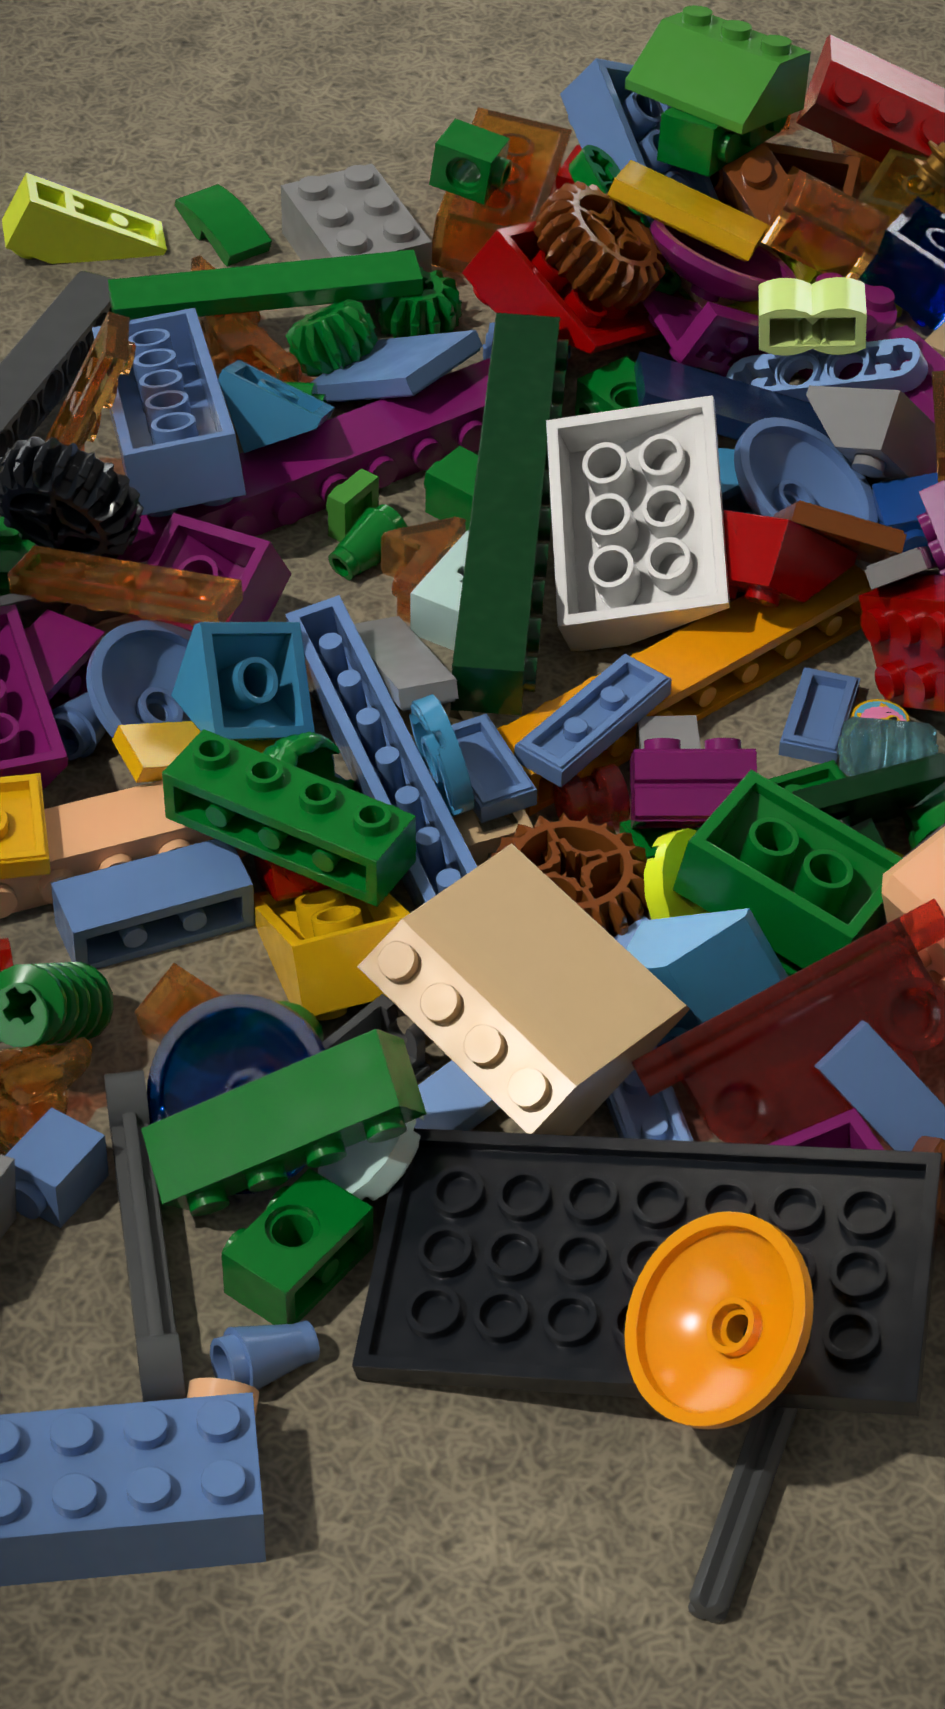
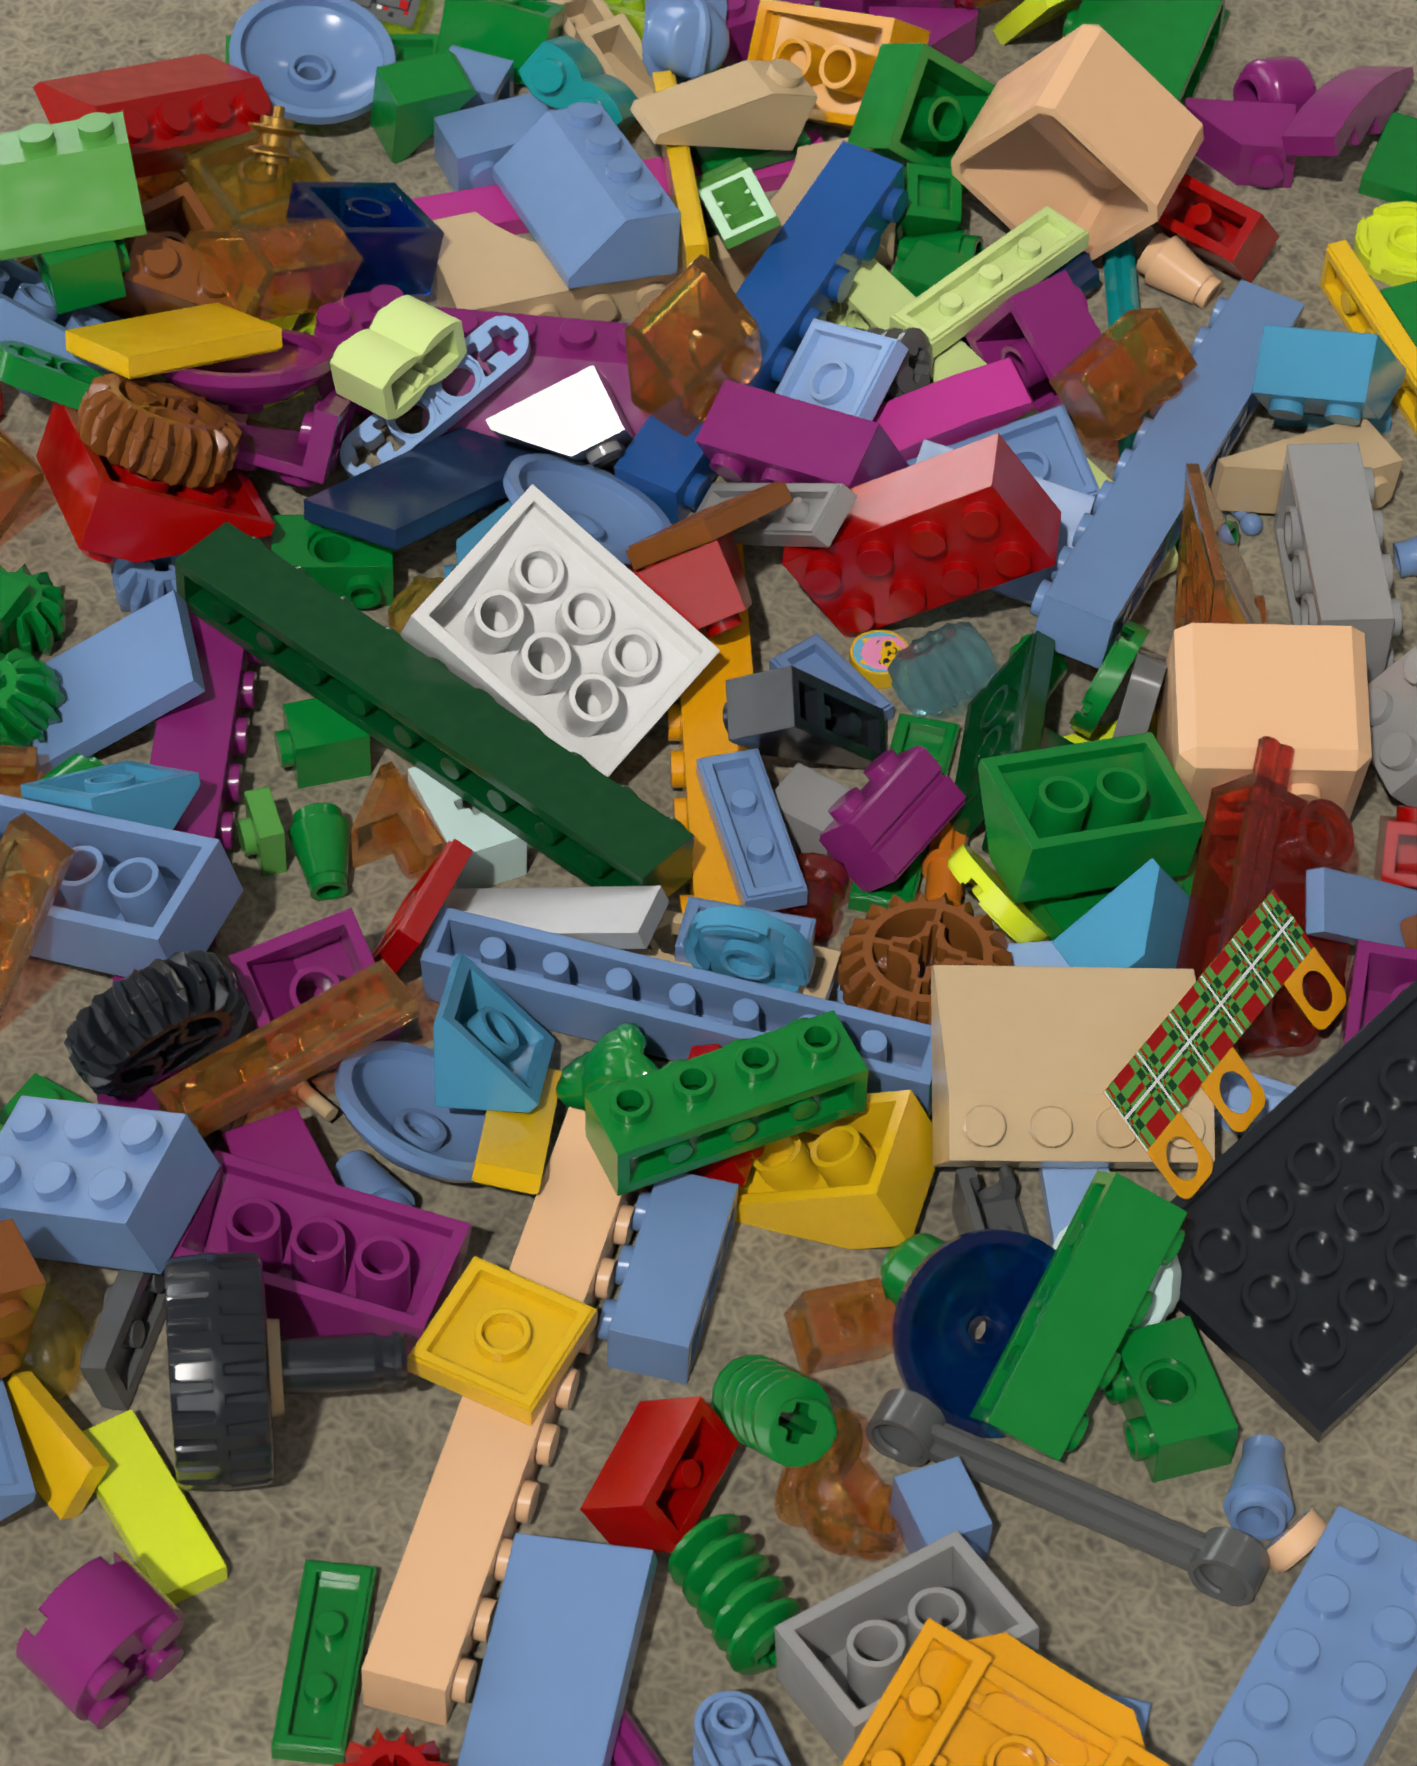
camera: 55 degrees left, 5 degrees up
(362, 587) = (421, 906): none -> red tile
(621, 1035) = (1199, 1034): none -> piece
(732, 692) = (802, 719): none -> black slope

